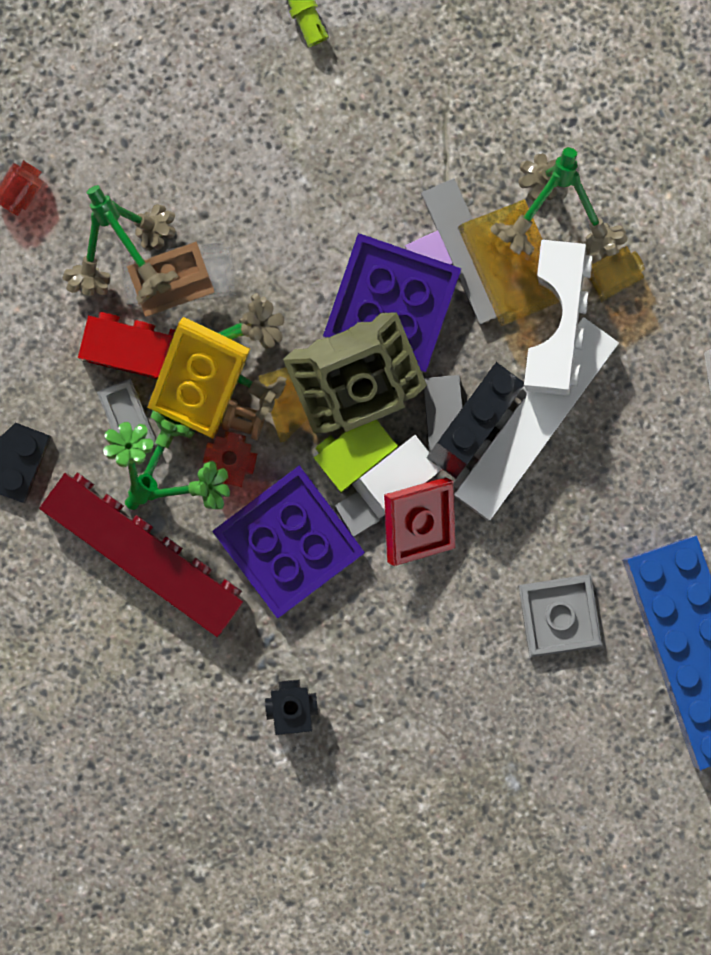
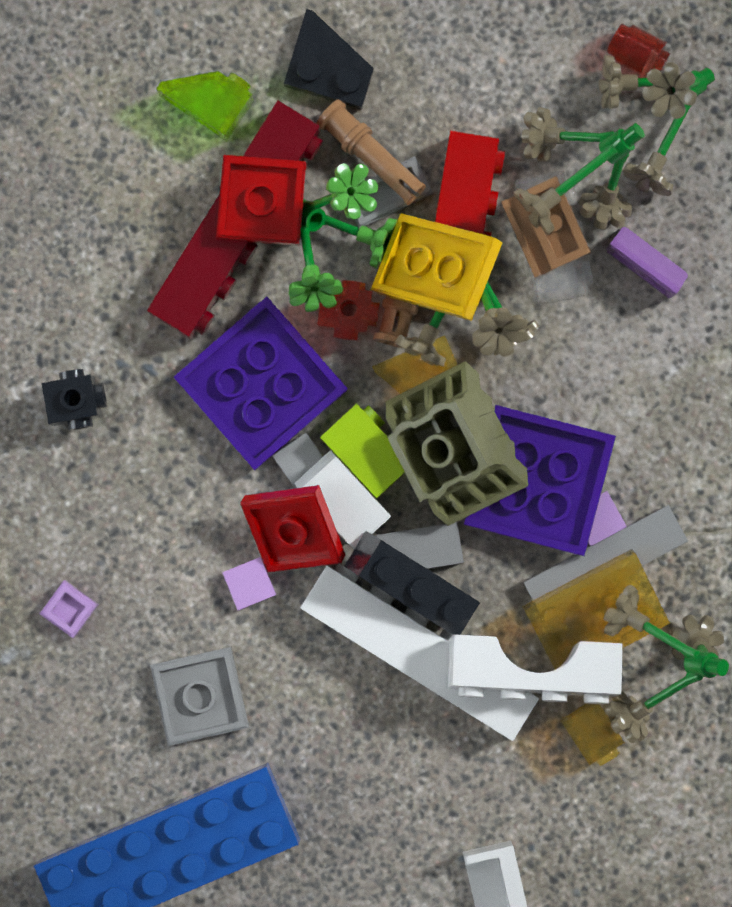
camera: 85 degrees right, 0 degrees up
(33, 569) = (210, 100): none -> clear neon green slope
(60, 159) = (671, 93): none -> dark tan plant
(79, 440) = (357, 140): none -> medium nougat pin
(127, 528) = (261, 200): none -> red tile
(206, 194) = (647, 262): none -> medium lavender slope
(464, 564) = (249, 583): none -> lavender tile
(475, 726) = (68, 609): none -> lavender tile

